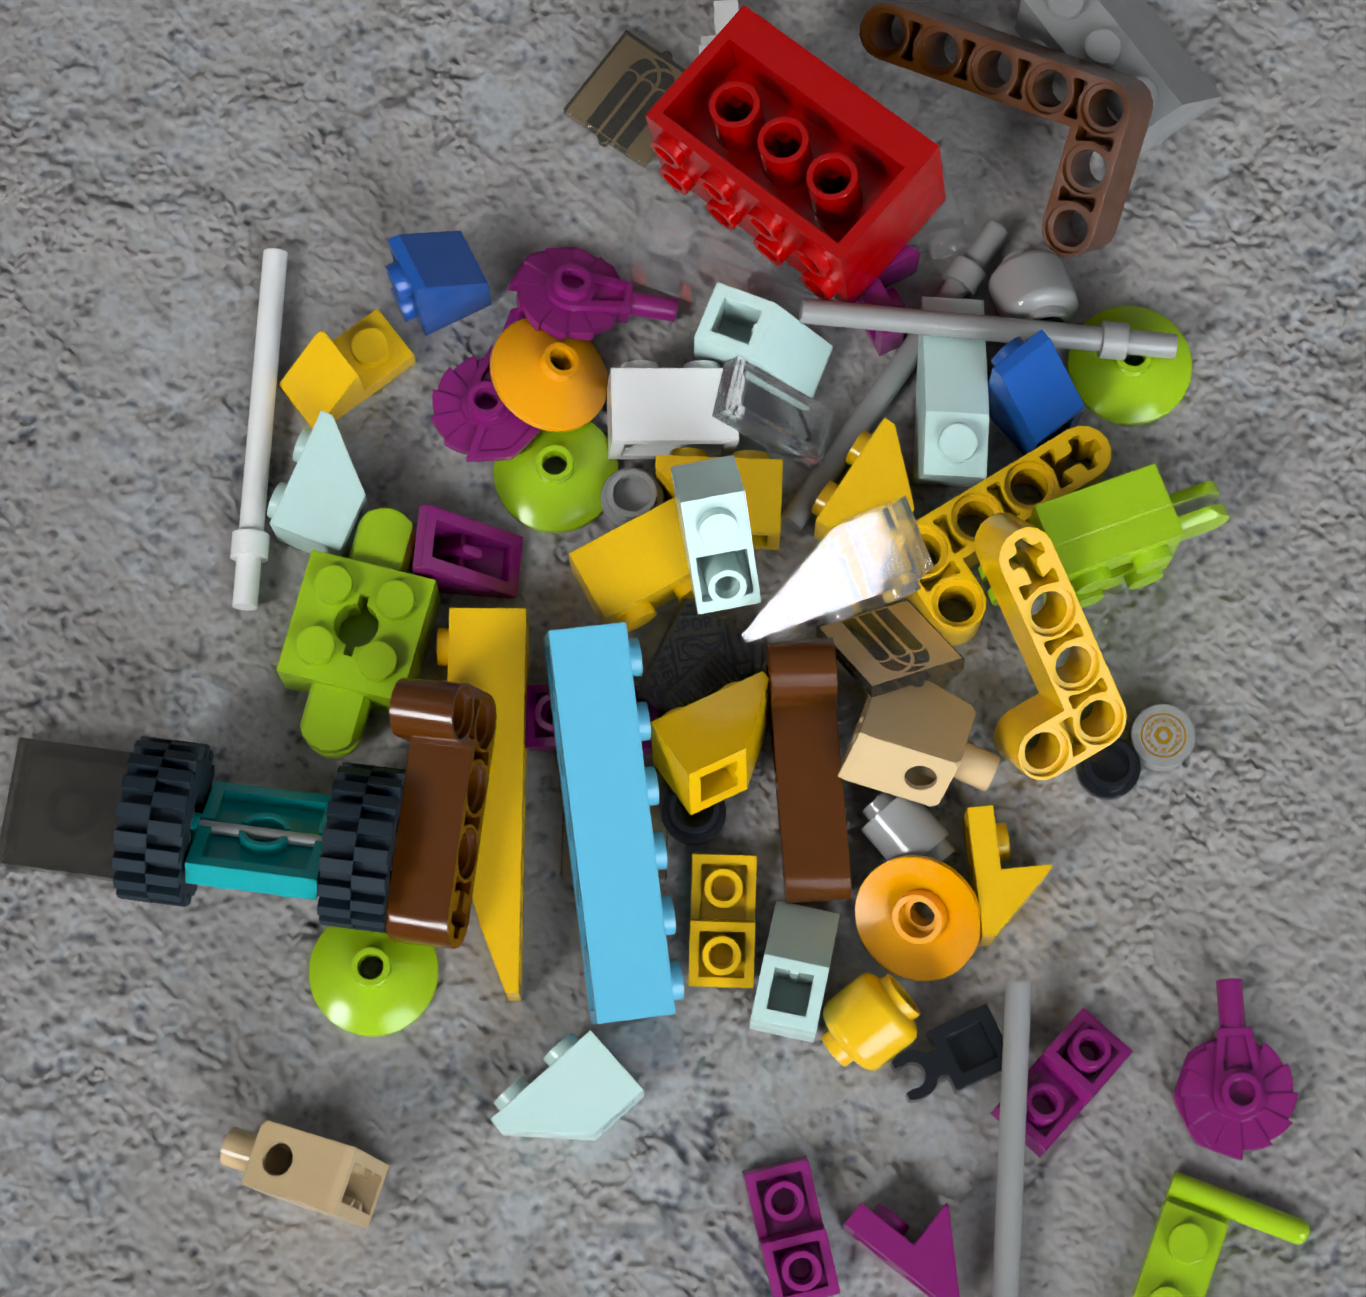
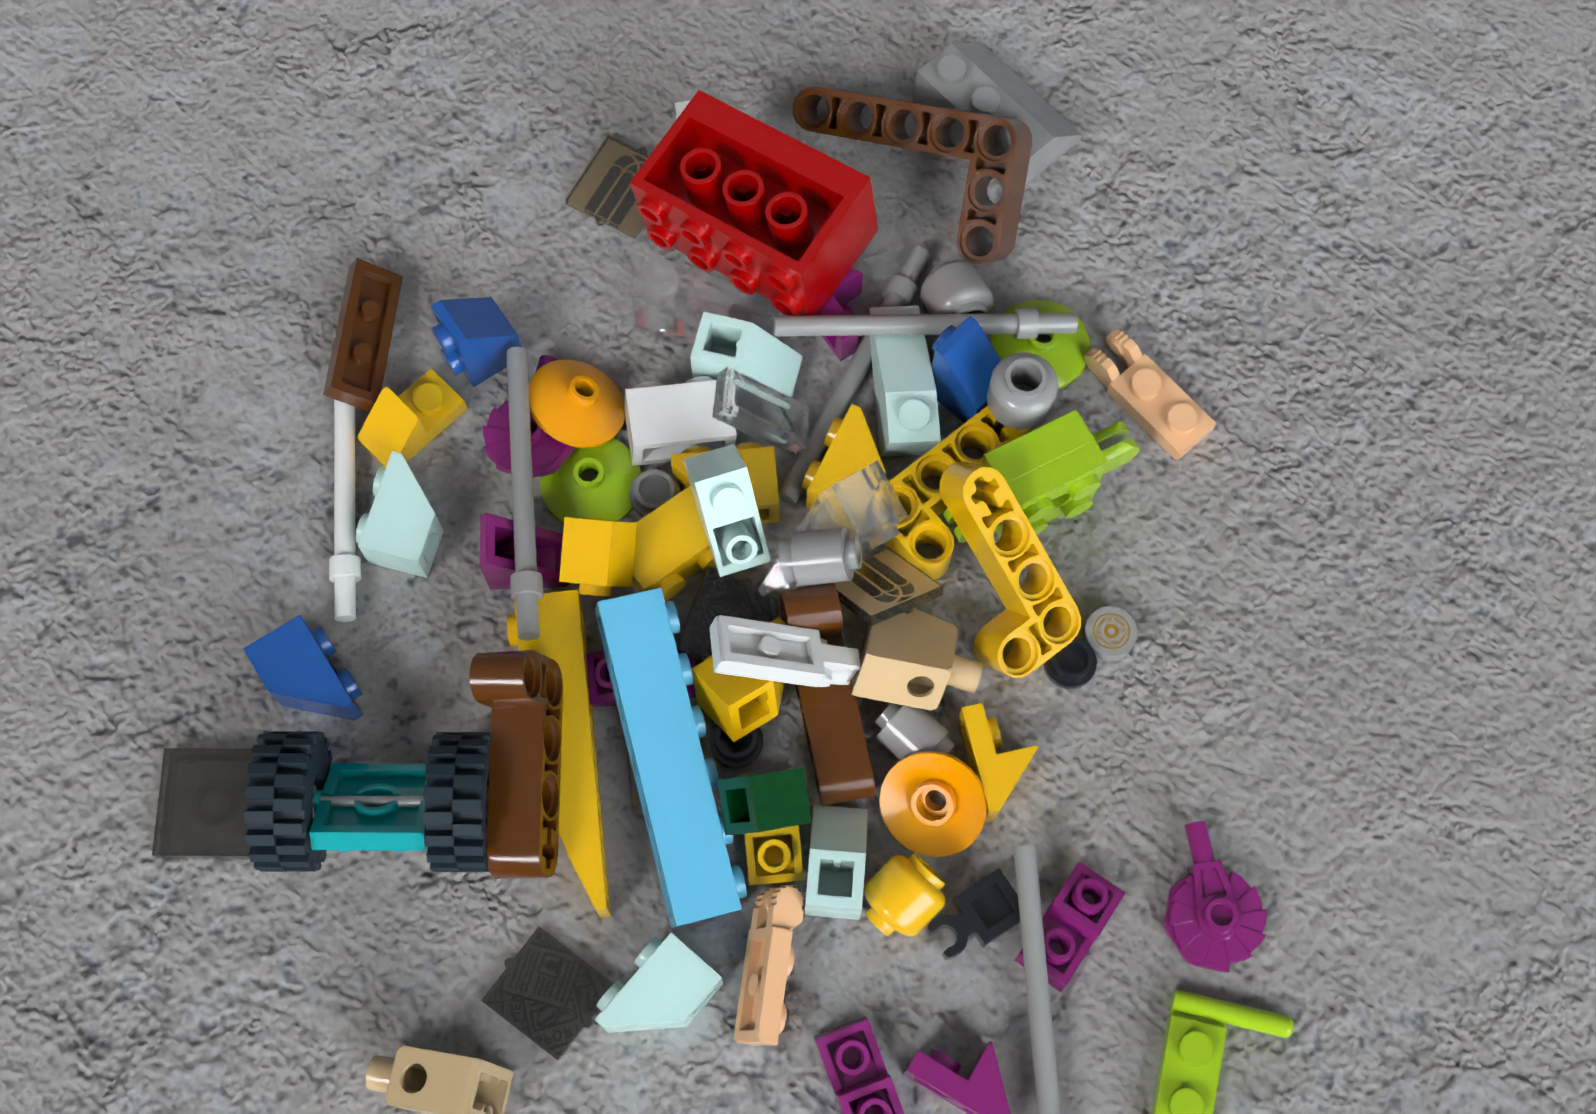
camera: 10 degrees left, 5 degrees down
(186, 668) = (299, 673): none -> blue slope
(299, 258) = (363, 335): none -> reddish brown plate
(357, 631) = (437, 625): lime brick -> none
(377, 1004) = (485, 935): lime dish -> none
(438, 1081) = (547, 993): none -> clear smoke piece
(466, 593) = (526, 582): none -> light grey bar
(555, 570) = (597, 554): none -> yellow brick
(580, 295) = (595, 339): magenta piece -> none
(698, 1082) = (767, 965): none -> light nougat hinge
(718, 891) = (764, 801): none -> dark green brick
(756, 719) = (779, 653): none -> white hinge
(819, 608) = (820, 556): none -> light grey brick
(1093, 430) = (1022, 391): none -> light grey head
(1257, 448) = (1150, 396): none -> light nougat hinge

